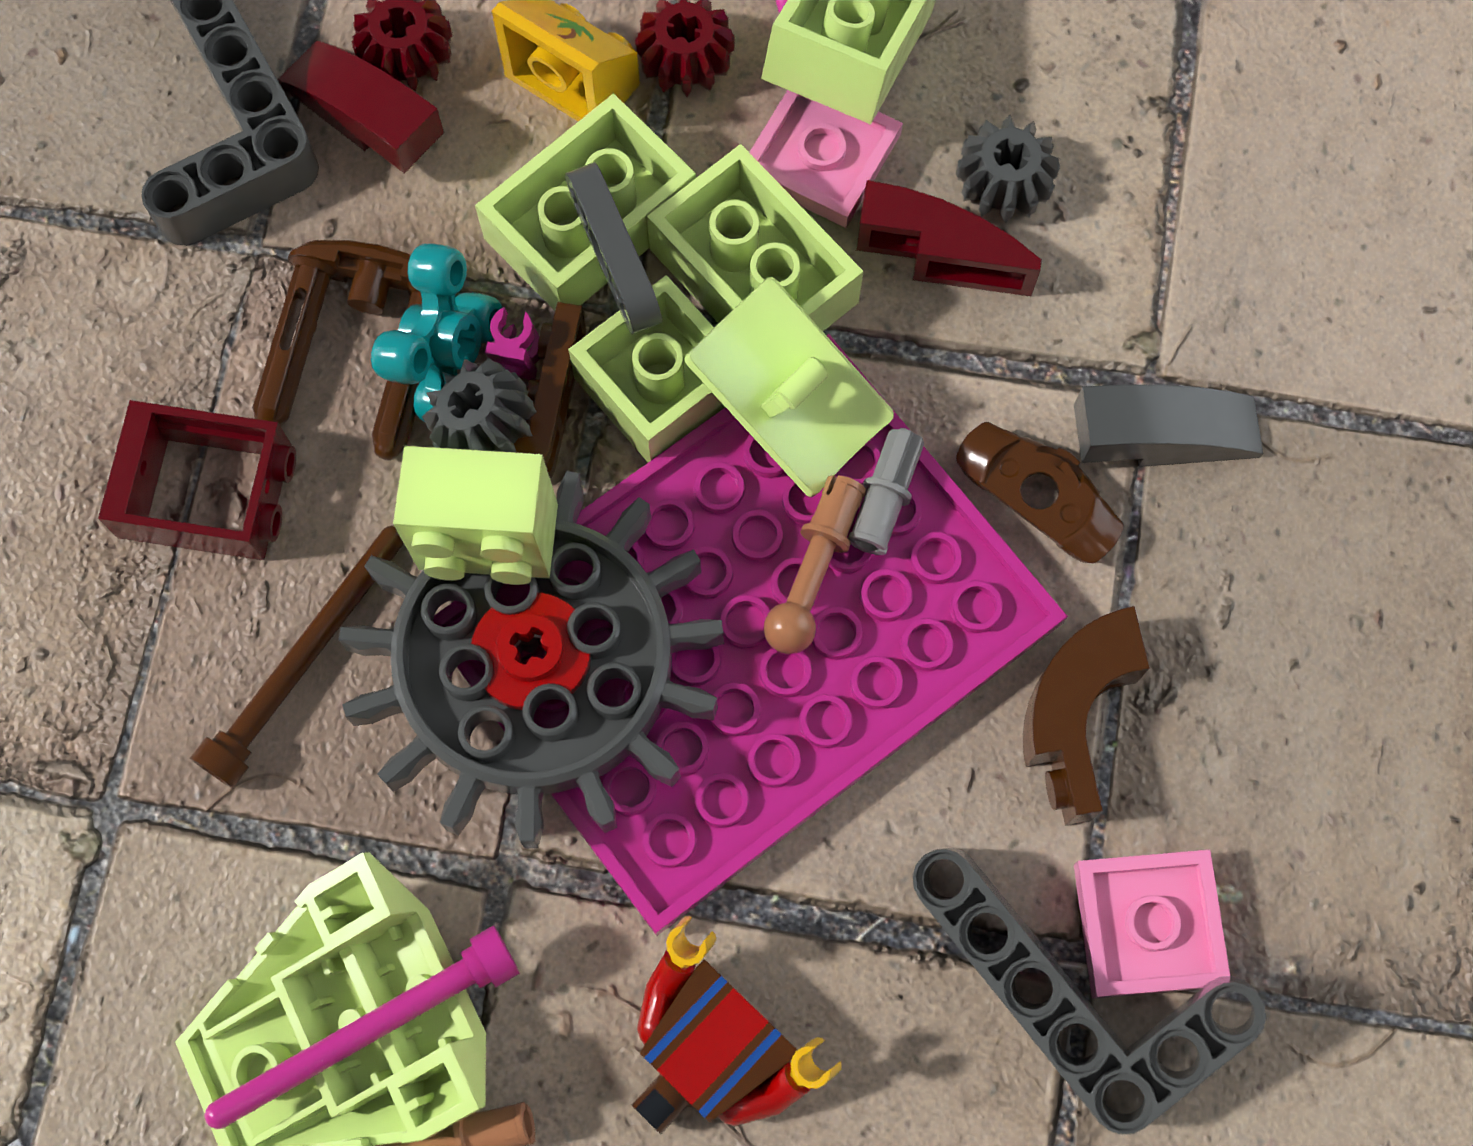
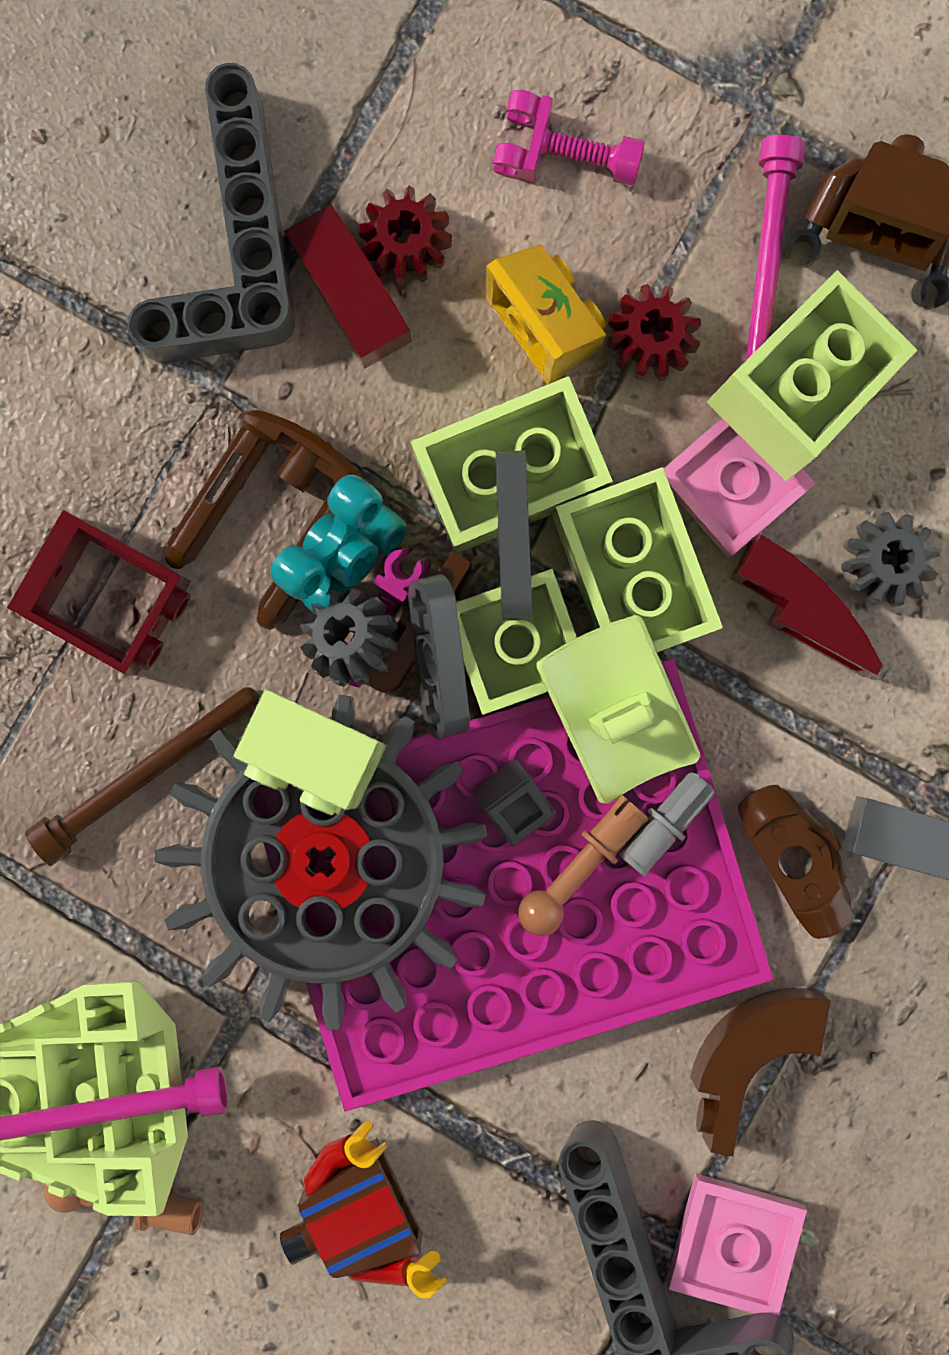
camera: 25 degrees right, 15 degrees up
(581, 401) = (439, 656): none -> dark grey beam
(719, 530) = (513, 802): none -> dark grey slope

